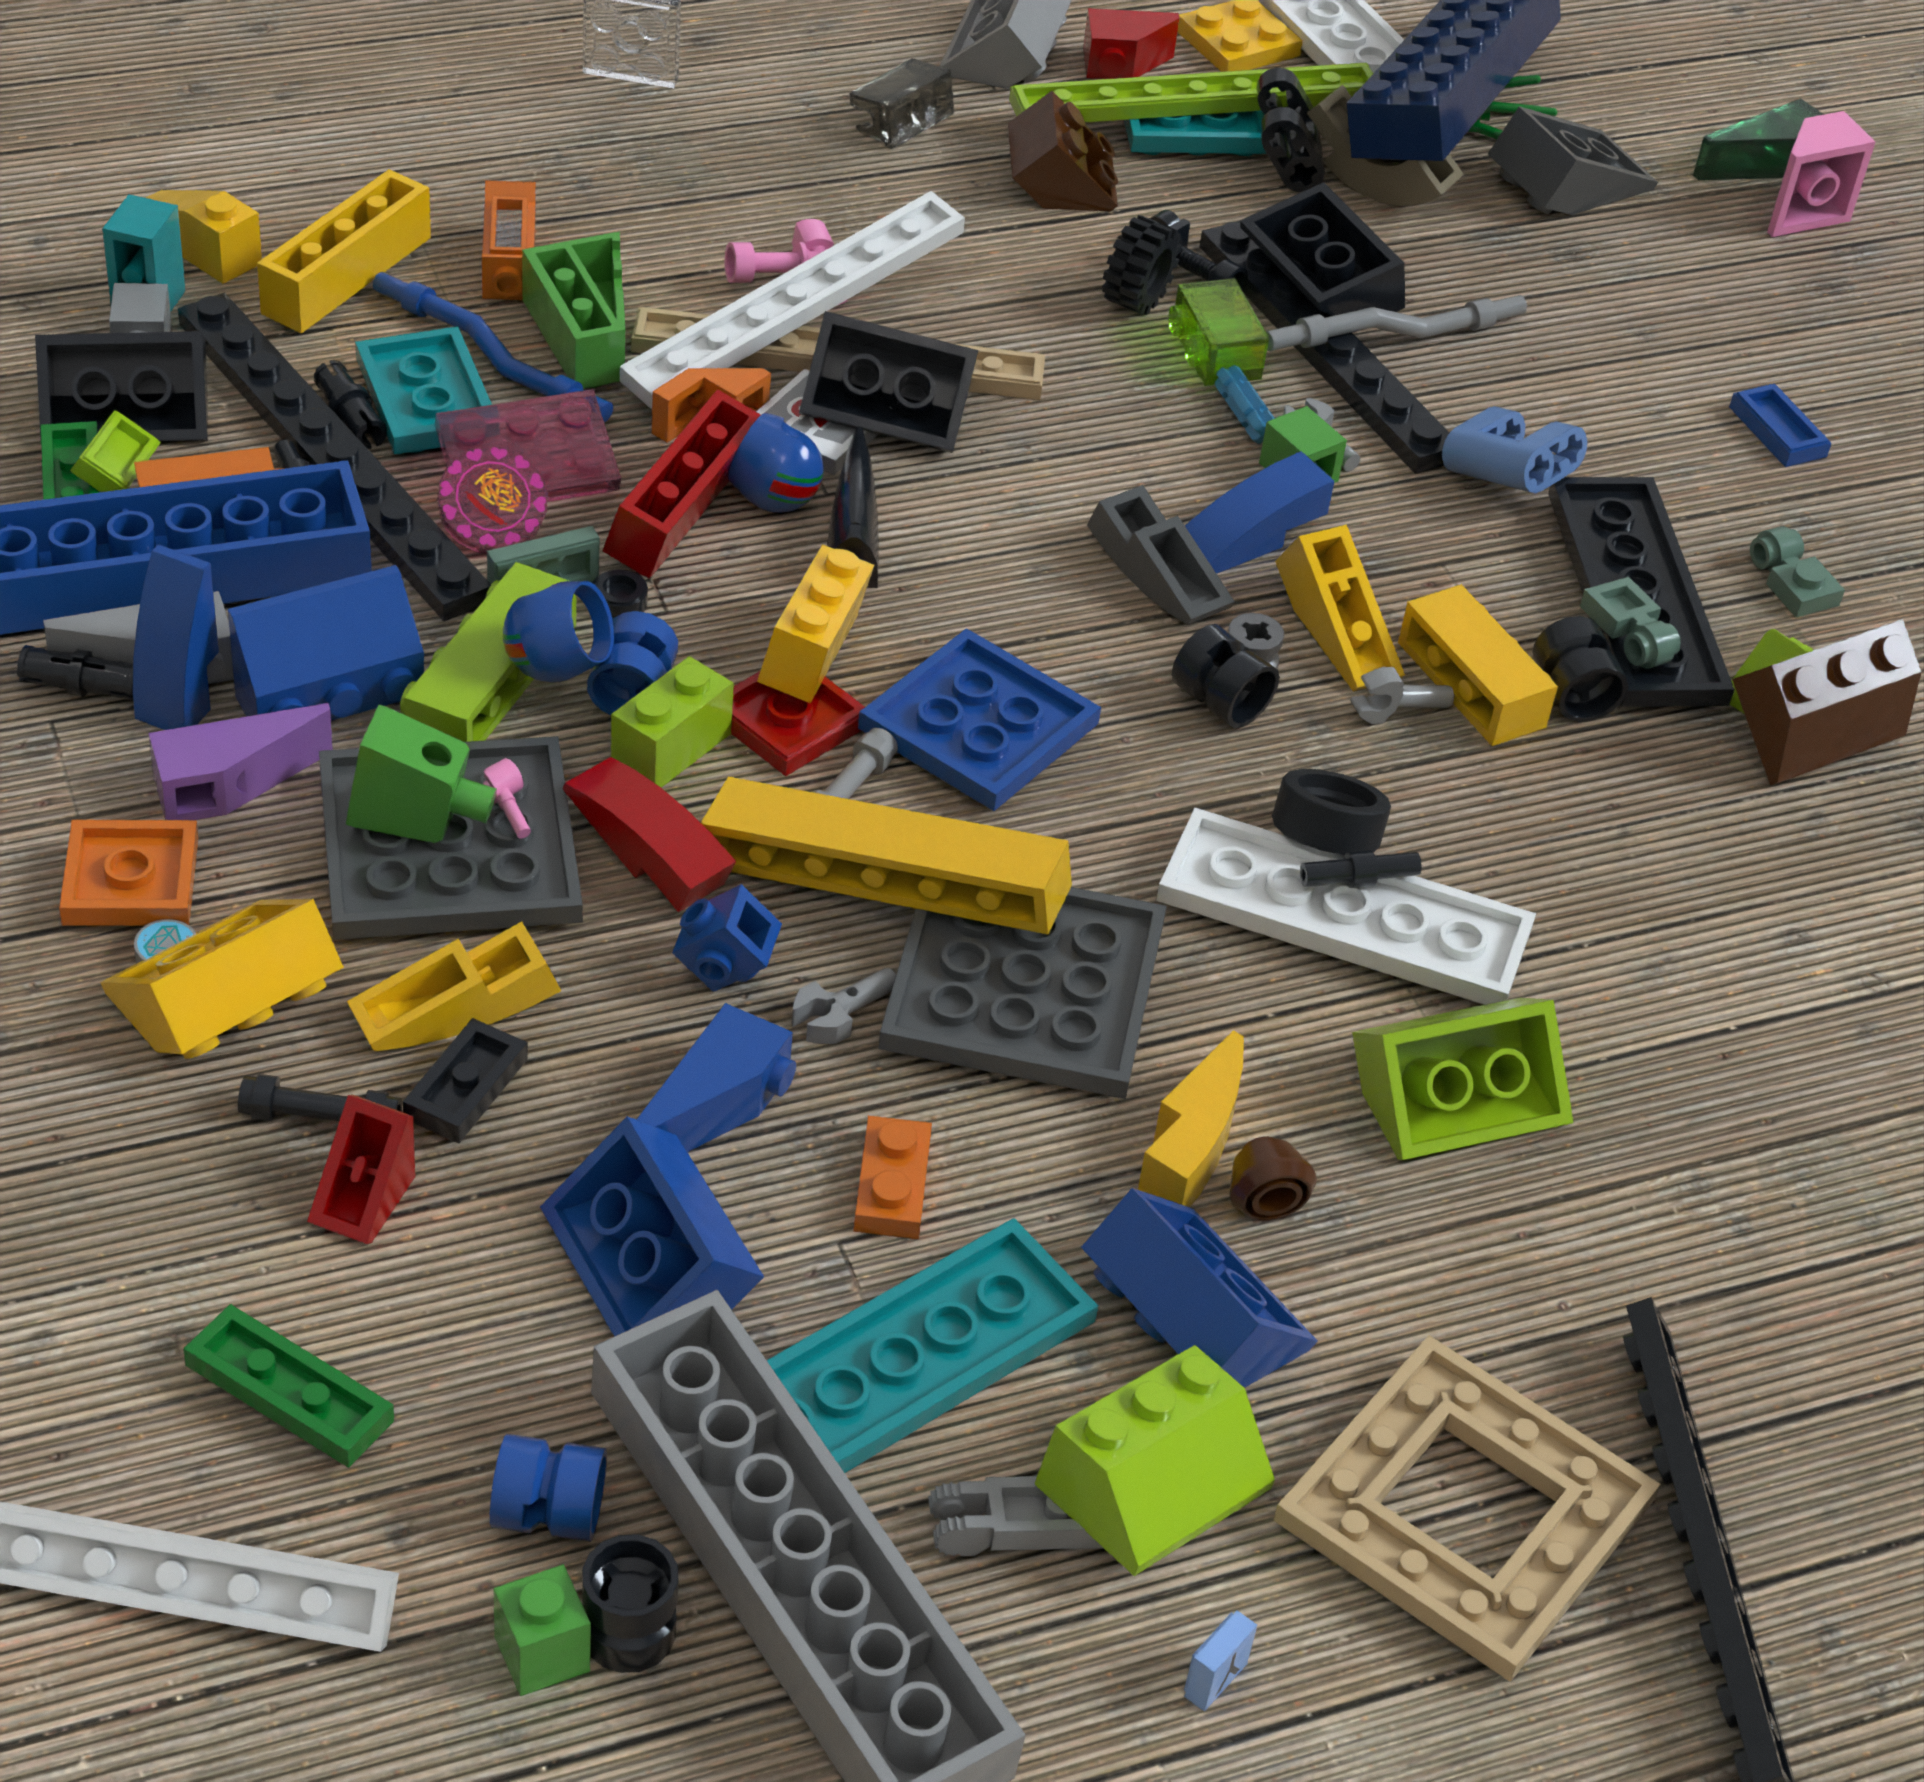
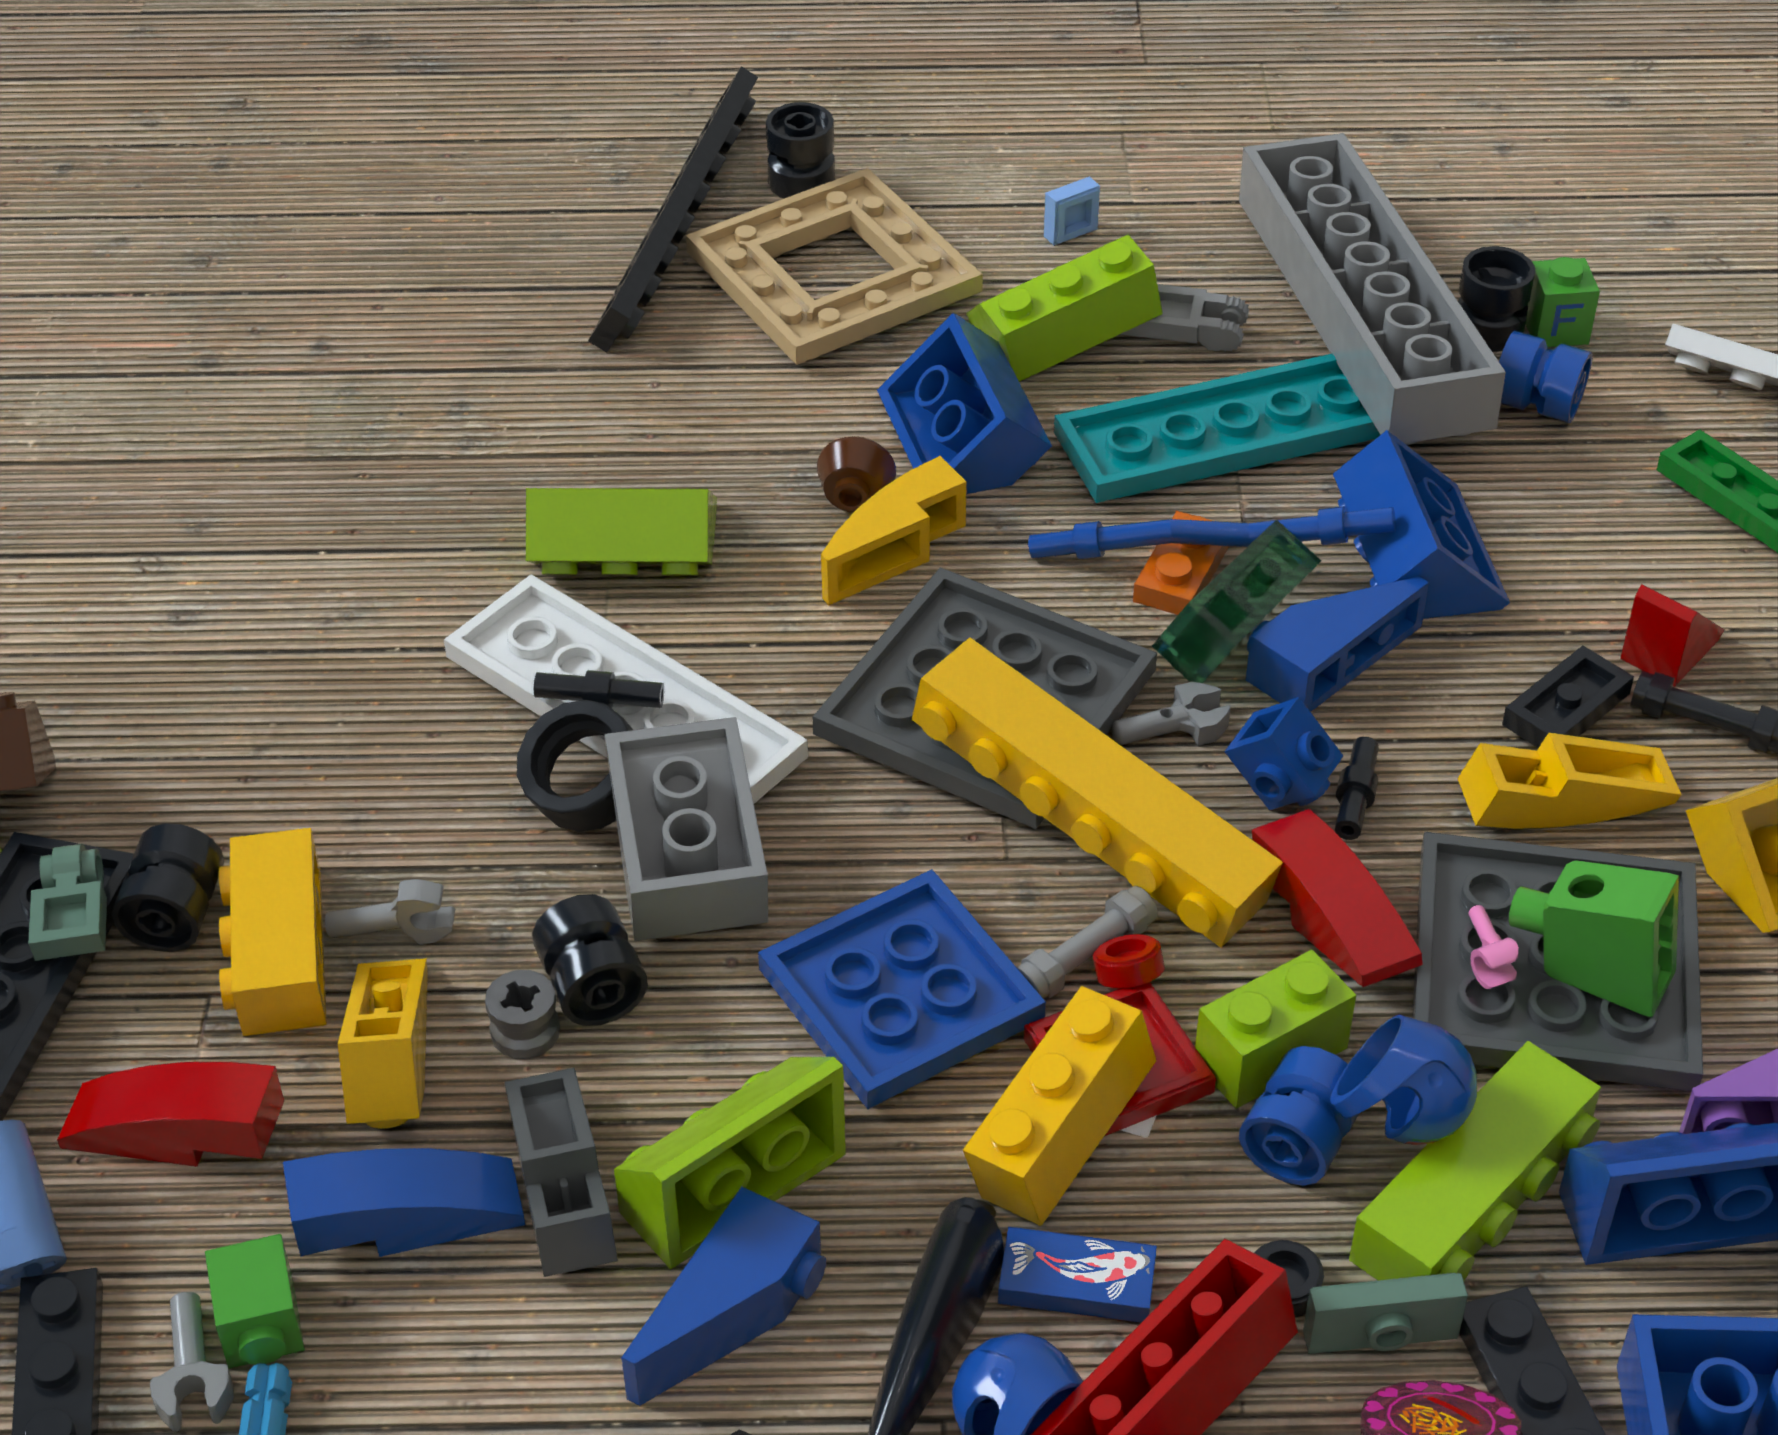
camera: 155 degrees left, 0 degrees up
(653, 962) = (1356, 788): none -> black bar
(749, 1166) = (1093, 539): none -> blue bar
(760, 569) = (1077, 1274): none -> tile
(806, 765) = (1128, 961): none -> red tile
(819, 1076) = (1235, 603): none -> clear green slope
(994, 508) = (727, 1294): none -> blue slope
(1040, 560) = (759, 1138): none -> lime slope
(1202, 748) = (687, 829): none -> light grey slope
(1443, 539) = (176, 1112): none -> red slope
(1613, 1662) = (799, 148): none -> black wheel

